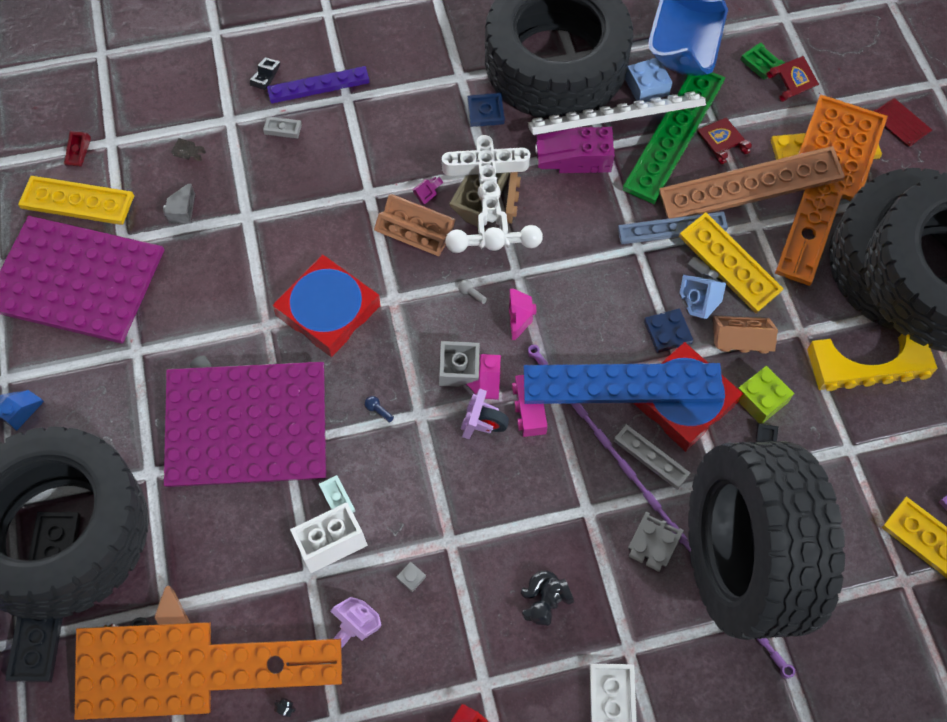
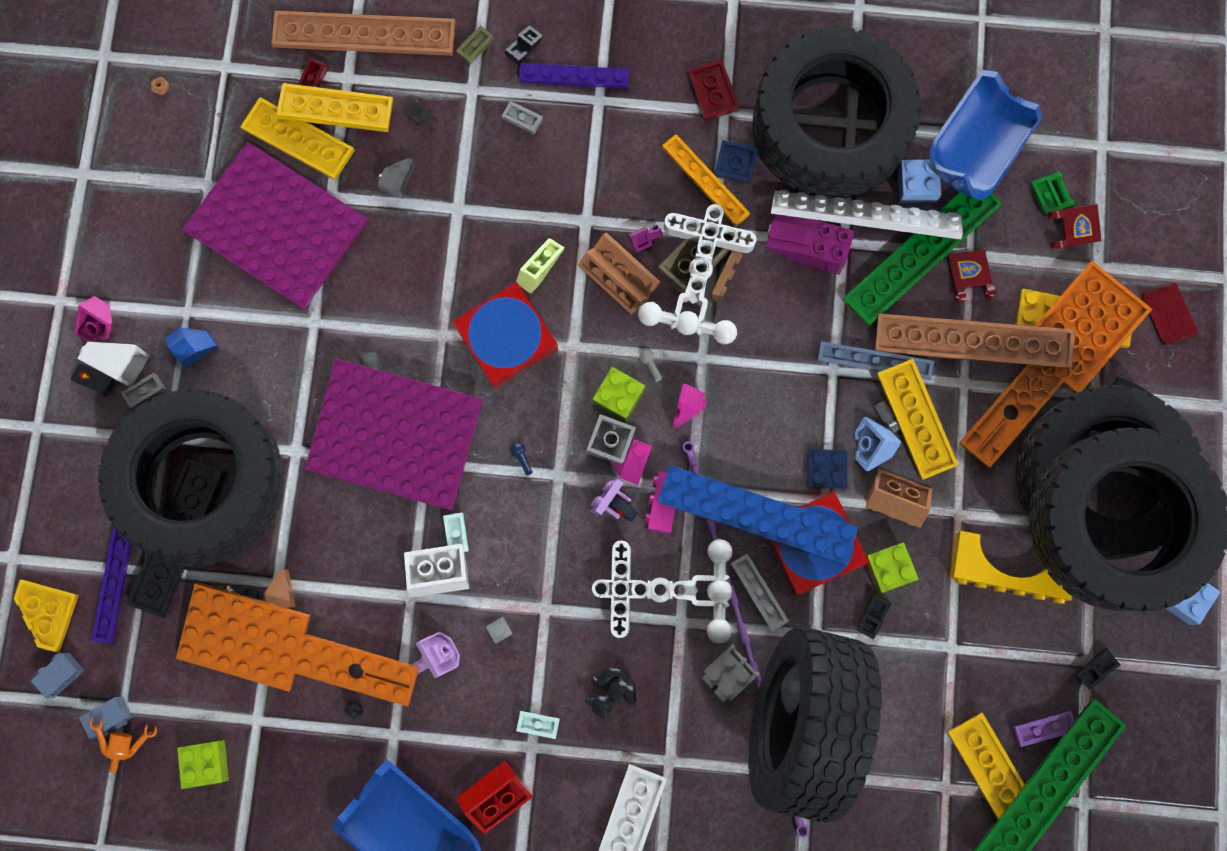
camera: 20 degrees right, 15 degrees up
(105, 164) = (335, 107): none -> yellow plate
(114, 101) = (363, 33): none -> nougat plate
(221, 84) = (475, 45): none -> olive plate
(338, 239) = (539, 265): none -> yellowish green slope
(444, 62) = (713, 90): none -> dark red plate
(451, 322) = (618, 394): none -> lime brick
(458, 127) = (705, 180): none -> light orange plate
(483, 656) = (538, 724): none -> light aqua plate
(613, 465) = (718, 590): none -> white piece

